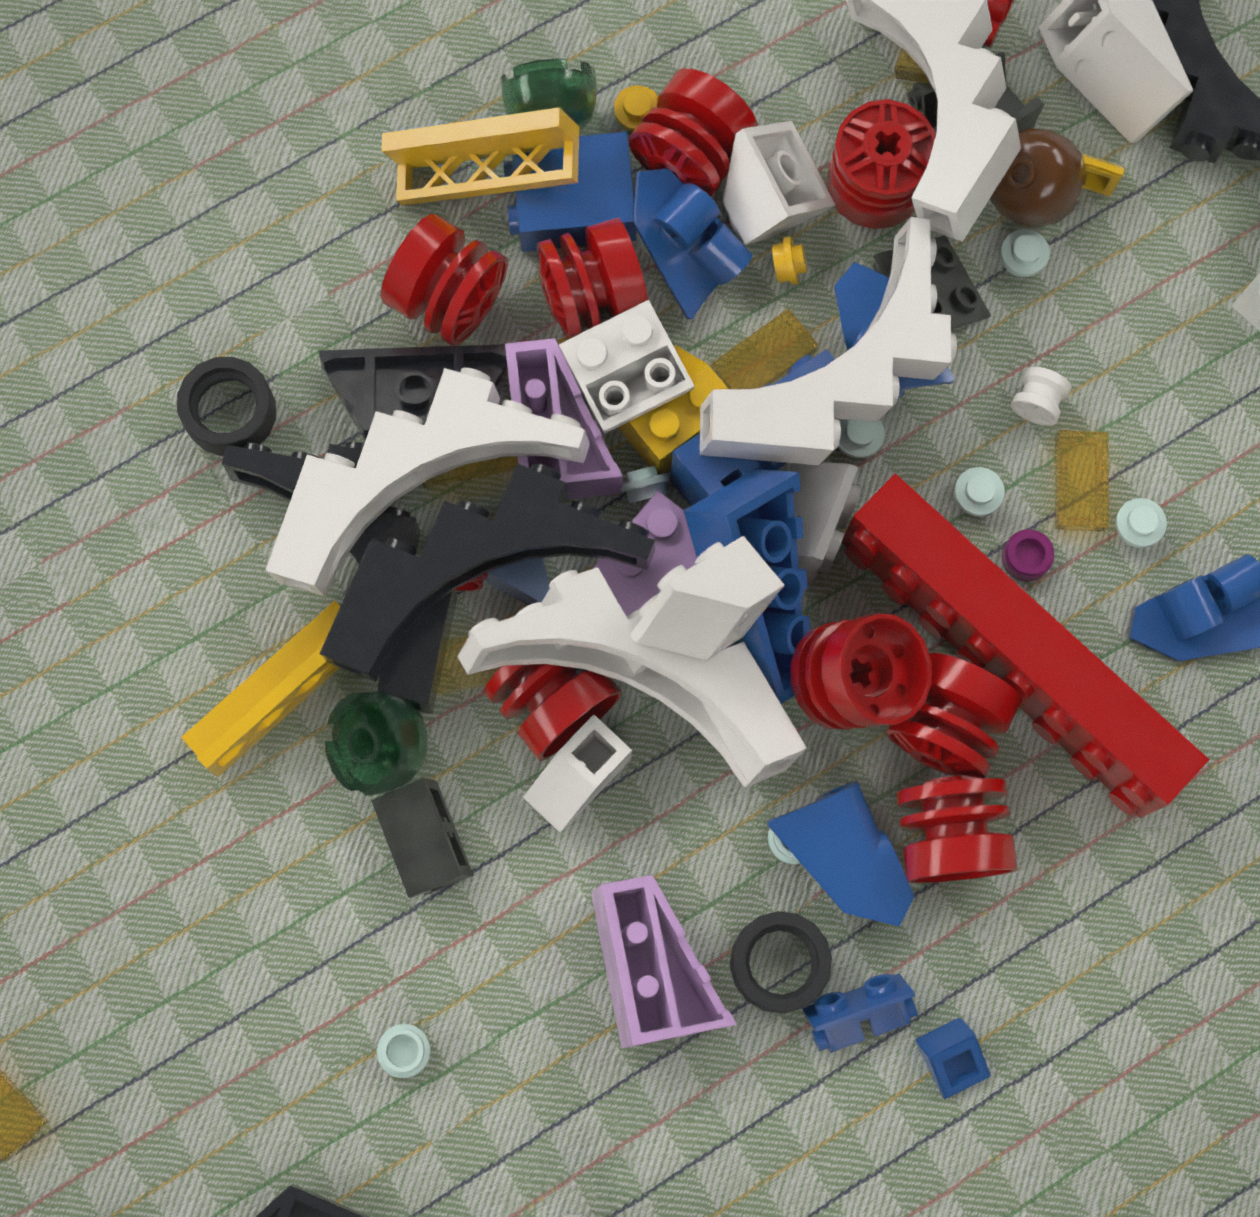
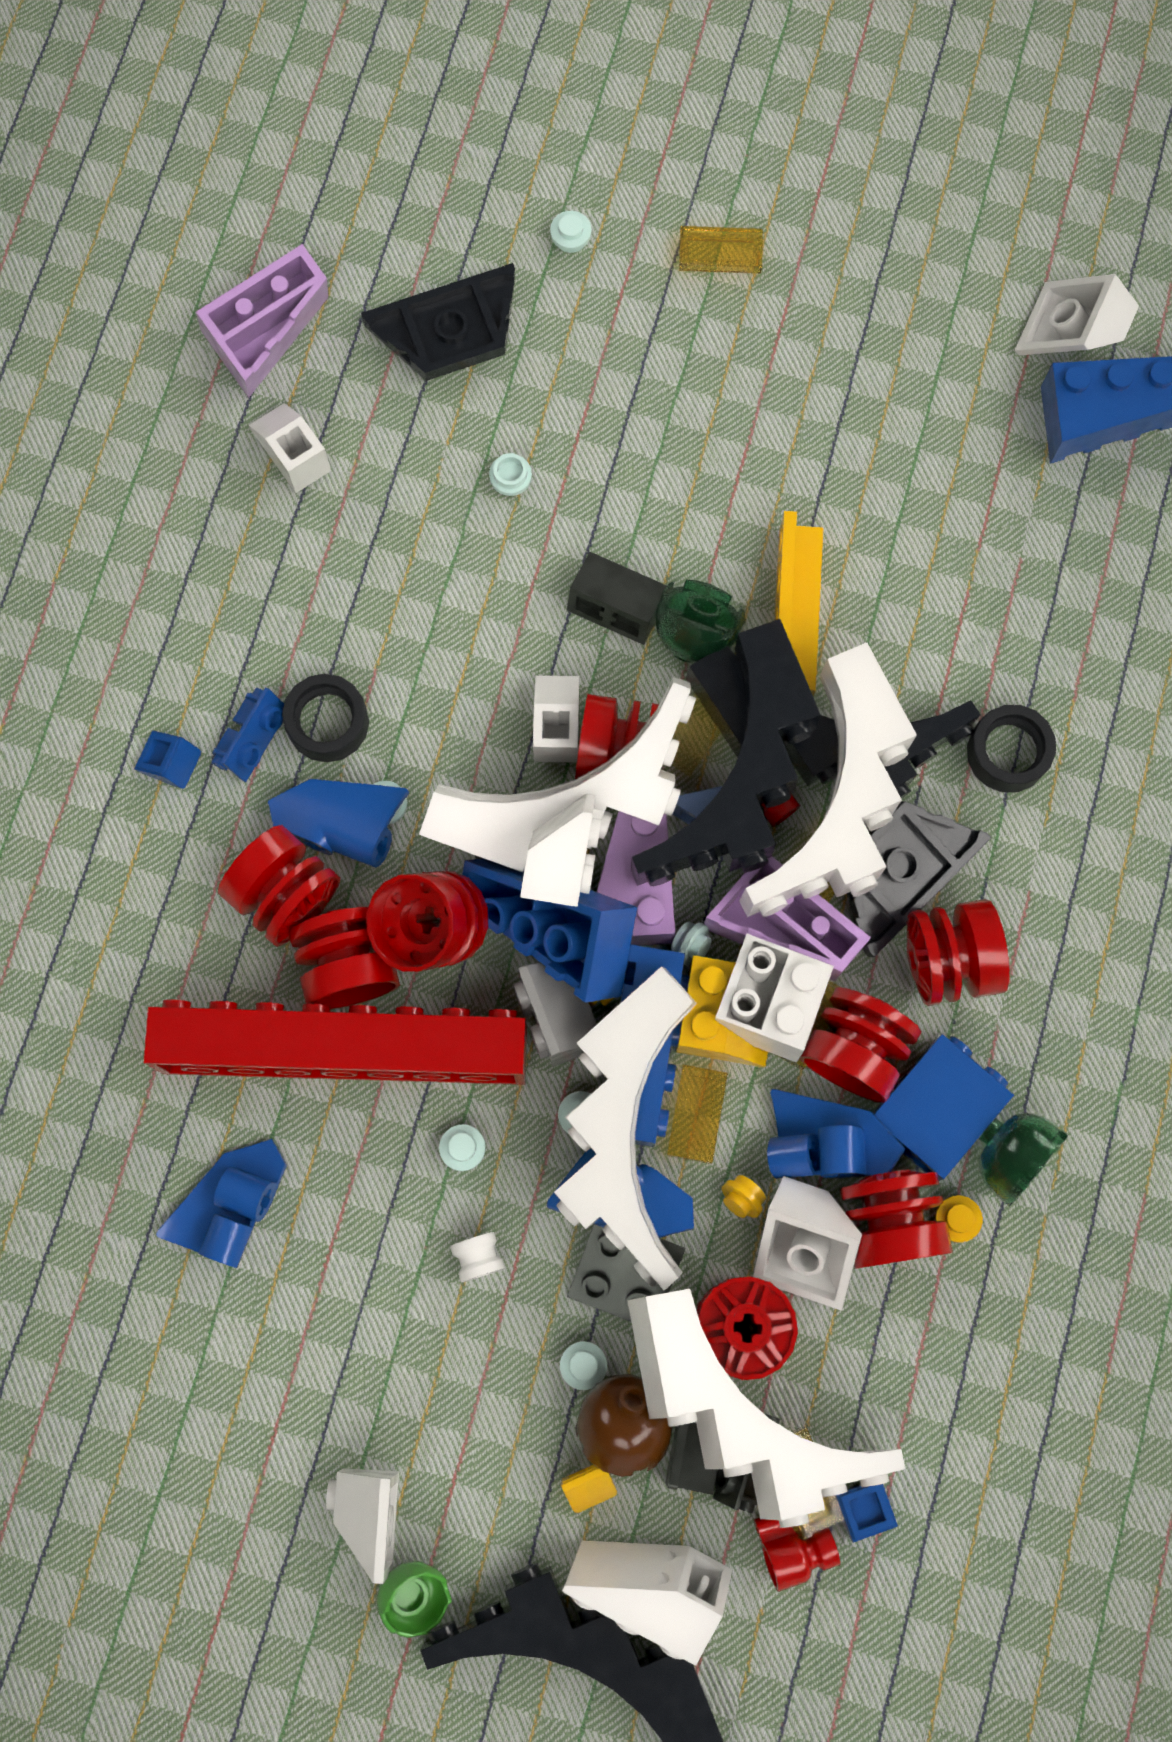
camera: 140 degrees right, 0 degrees up
(478, 140) = (1033, 1070): yellow fence -> none
(650, 967) = (399, 639): lavender wedge -> none
(1028, 555) = (390, 1134): magenta tile -> none
(1081, 481) = (397, 1224): clear yellow tile -> none
(1140, 523) = (330, 1228): light aqua plate -> none

